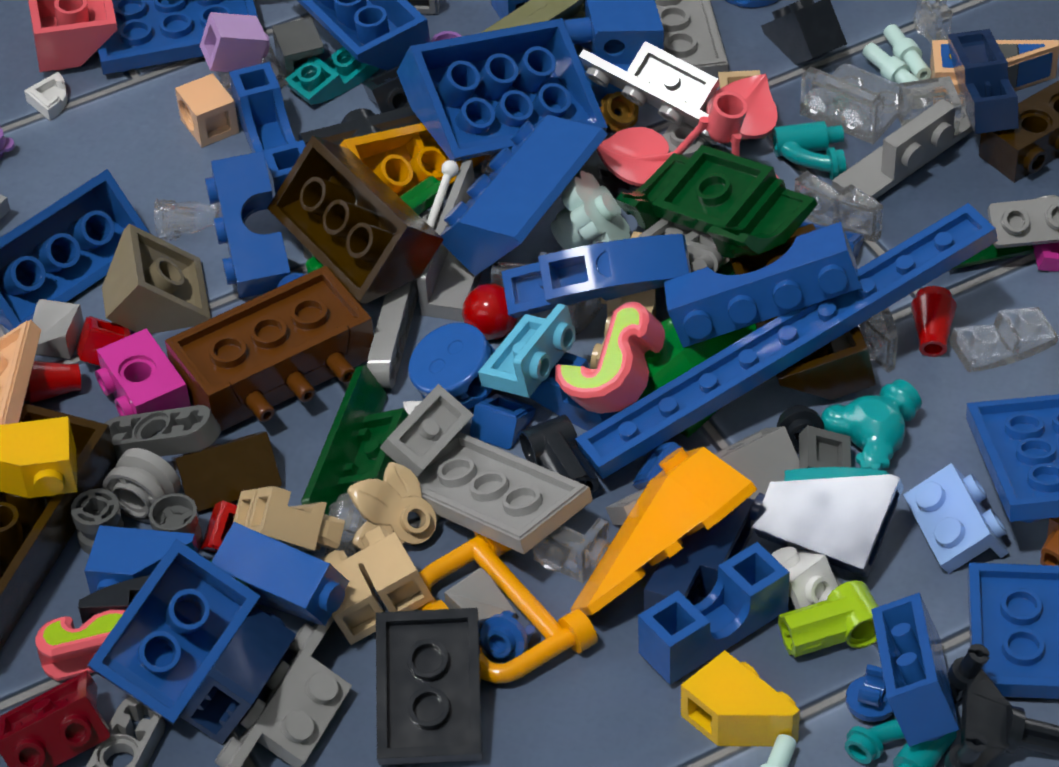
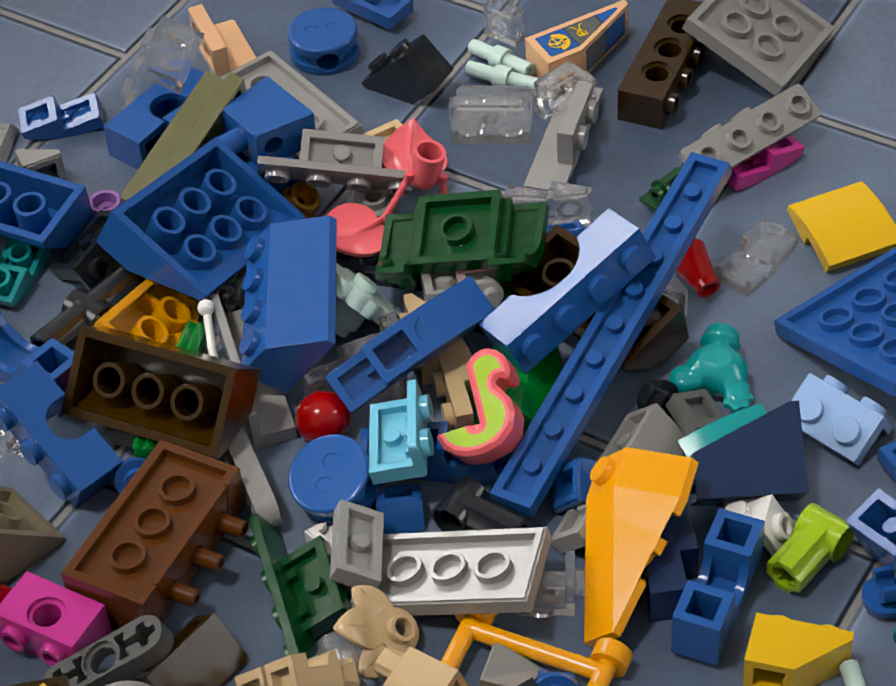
camera: 30 degrees left, 0 degrees up
(801, 142) = (473, 164): teal plant -> none
(984, 81) = (599, 52): dark blue slope -> none

